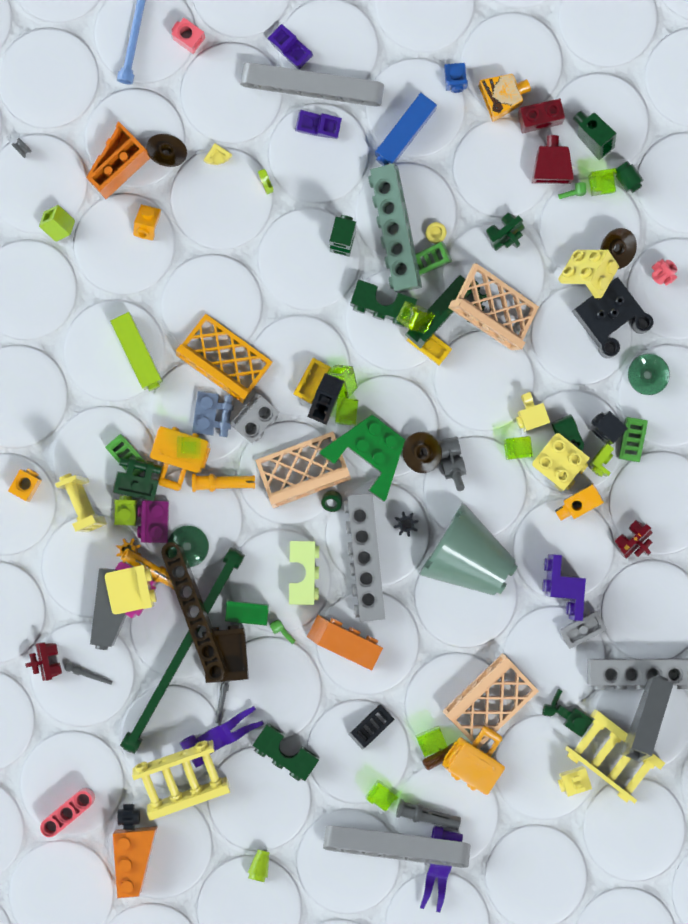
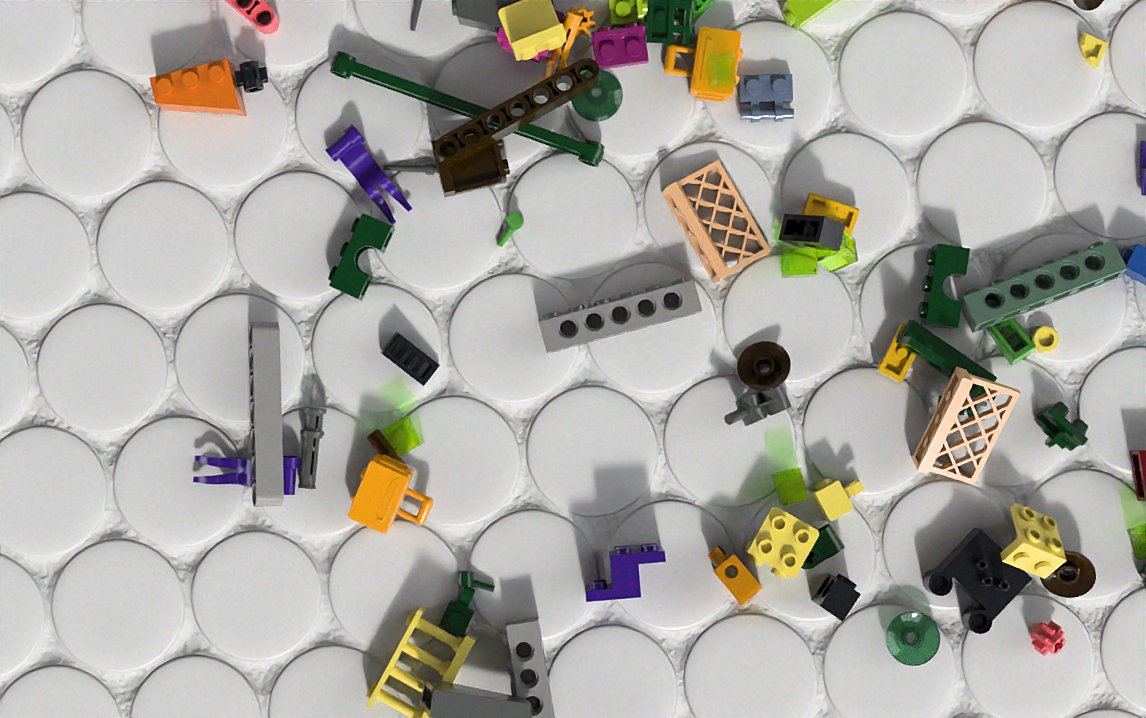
camera: 85 degrees right, 0 degrees up
(177, 799) = (282, 133): light yellow fence -> none
(214, 482) = (681, 111): light orange pin -> none
(217, 374) = (818, 89): light orange fence -> none
(247, 612) = (526, 181): green panel -> none
(250, 414) = (774, 143): light grey brick -> none
(259, 866) = (215, 248): lime cone -> none
(265, 181) = (1072, 113): lime tile -> none
(304, 592) = (611, 241): yellowish green arch -> none
(332, 494) = (690, 267): dark green piece -> none
(342, 235) = (1023, 218): dark green arch -> none
(345, 642) = (510, 308): orange wedge -> none
(375, 445) = (763, 304): green wing -> none
(381, 795) = (326, 385): clear neon green panel -> none
(407, 530) = (677, 357): black gear -> none
(415, 317) = (935, 327): clear neon green panel -> none
(470, 556) = (642, 447): sand green cone -> none
(479, 687) = (478, 484): light nougat fence -> none
(574, 781) = (381, 625): light yellow brick -> none
(580, 190) = (1130, 513): bright green hand -> none
(583, 630) = (574, 605): light grey plate -> none
(603, 456) = (797, 596): lime bracket -> none
(628, 546) = (708, 660): dark red hips -> none
(643, 426) = (802, 639): bright green slope -> none

